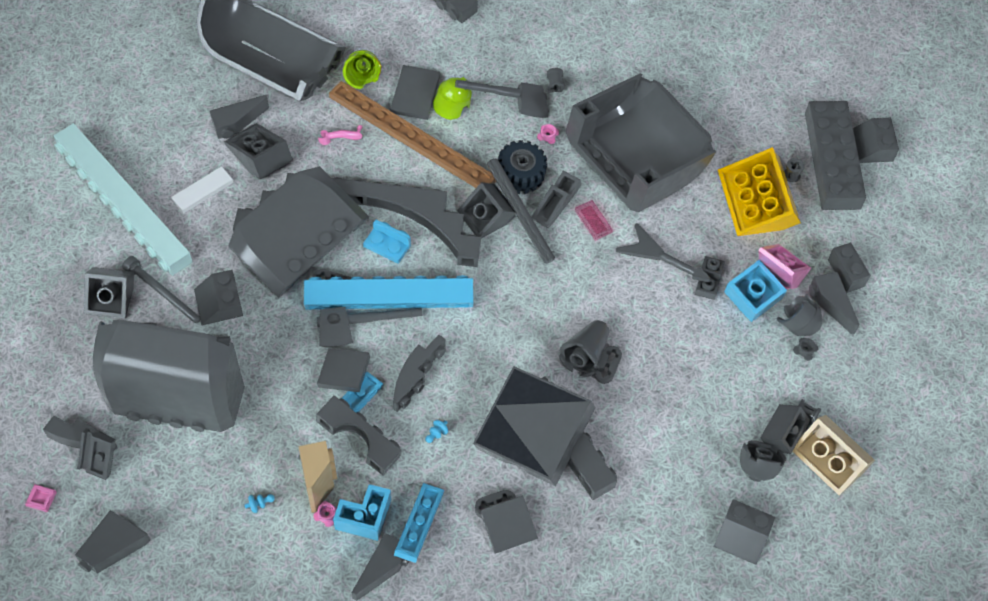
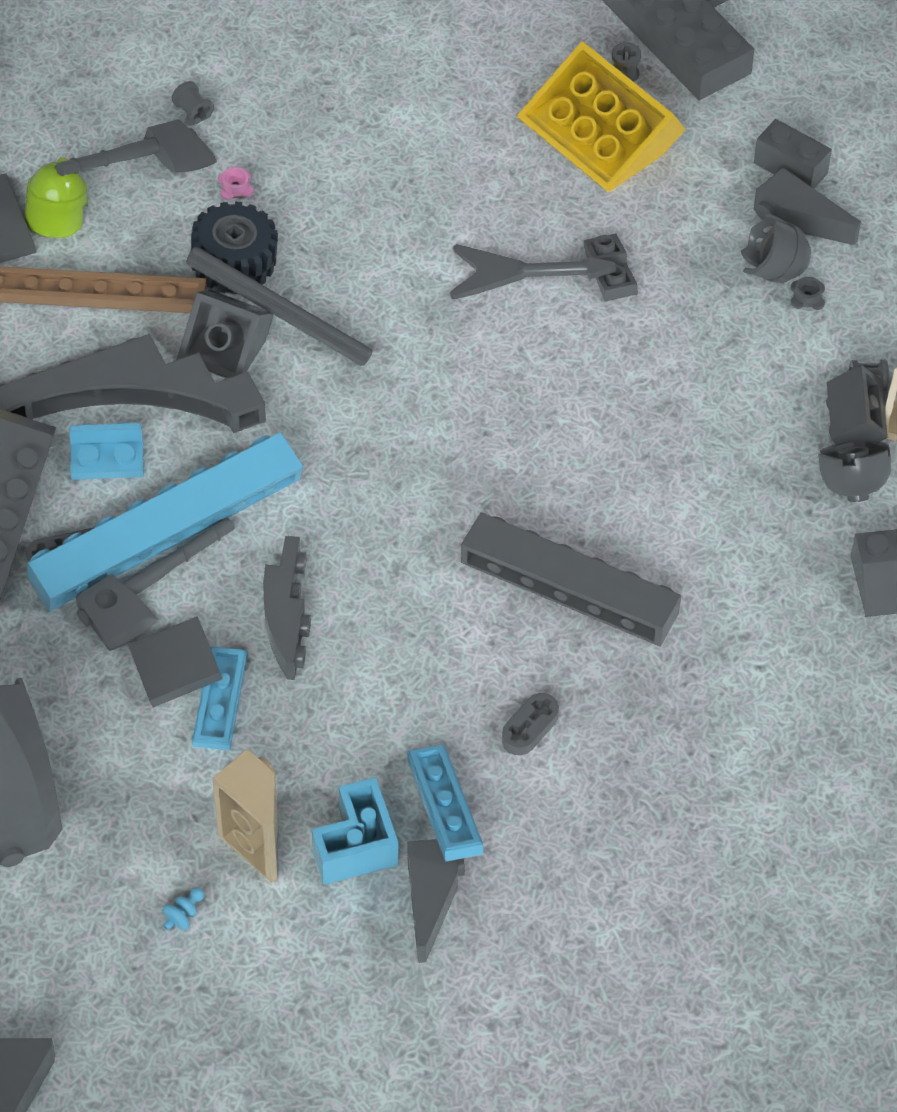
camera: 30 degrees left, 5 degrees down
(320, 514) = (292, 860): bright pink plate -> none
(338, 417) = (311, 738): dark grey arch -> none
(435, 432) = (374, 670): medium azure hair -> none
(508, 524) = (570, 738): dark grey tile -> none
(534, 425) = (517, 582): dark grey tile -> none
(556, 199) = (317, 266): dark grey slope -> none
(585, 348) = (510, 449): dark grey cone -> none
(593, 220) = (389, 271): clear pink tile -> none
(612, 366) = (560, 454): dark grey beam -> none
(639, 141) = (385, 125): dark grey slope -> none
(755, 291) = (689, 249): medium azure brick -> none
(784, 265) = (705, 197): bright pink slope -> none

